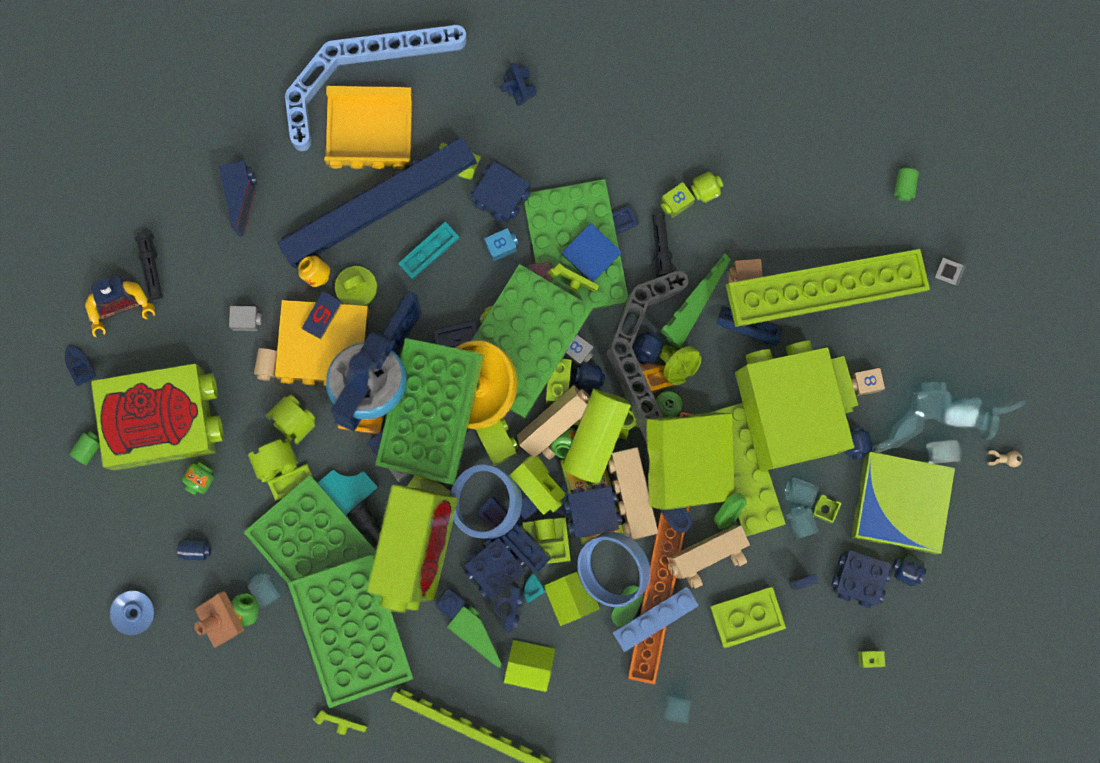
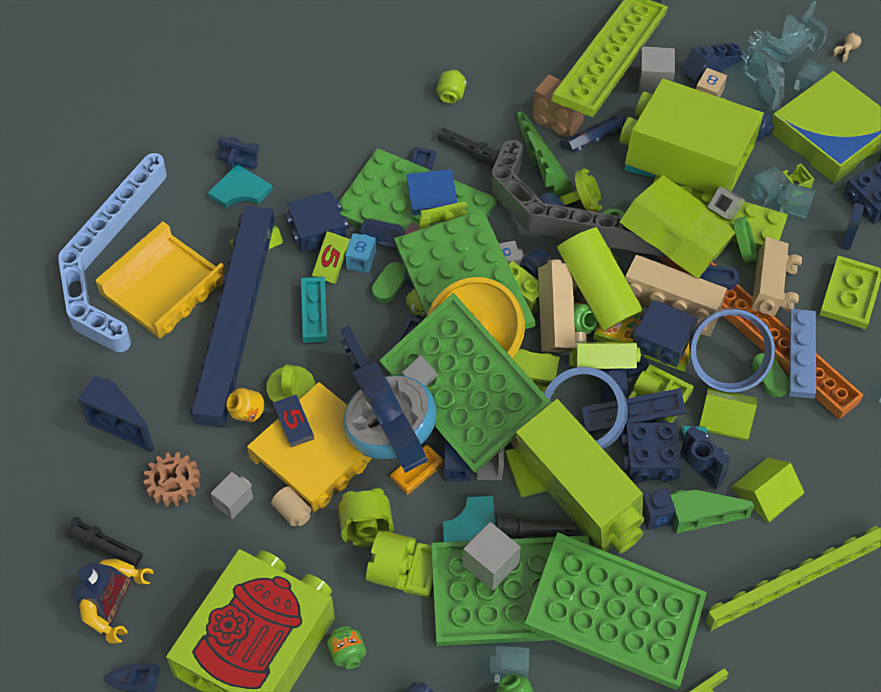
camera: 45 degrees left, 25 degrees down
(234, 269) = (172, 479): none -> nougat gear
(321, 523) = (491, 556): none -> light grey head
(413, 375) = (421, 371): none -> light grey tile
(477, 228) = (331, 257): none -> lime tile
(492, 109) = (239, 186): none -> teal tile
(492, 283) = (389, 282): none -> bright green tile
(530, 245) = (382, 231): none -> dark blue tile
(677, 200) = (442, 111): lime brick -> none
(746, 476) = (726, 203): none -> light grey brick
(848, 329) = (655, 65): none -> light grey head
(899, 363) = (714, 57): none -> dark blue slope

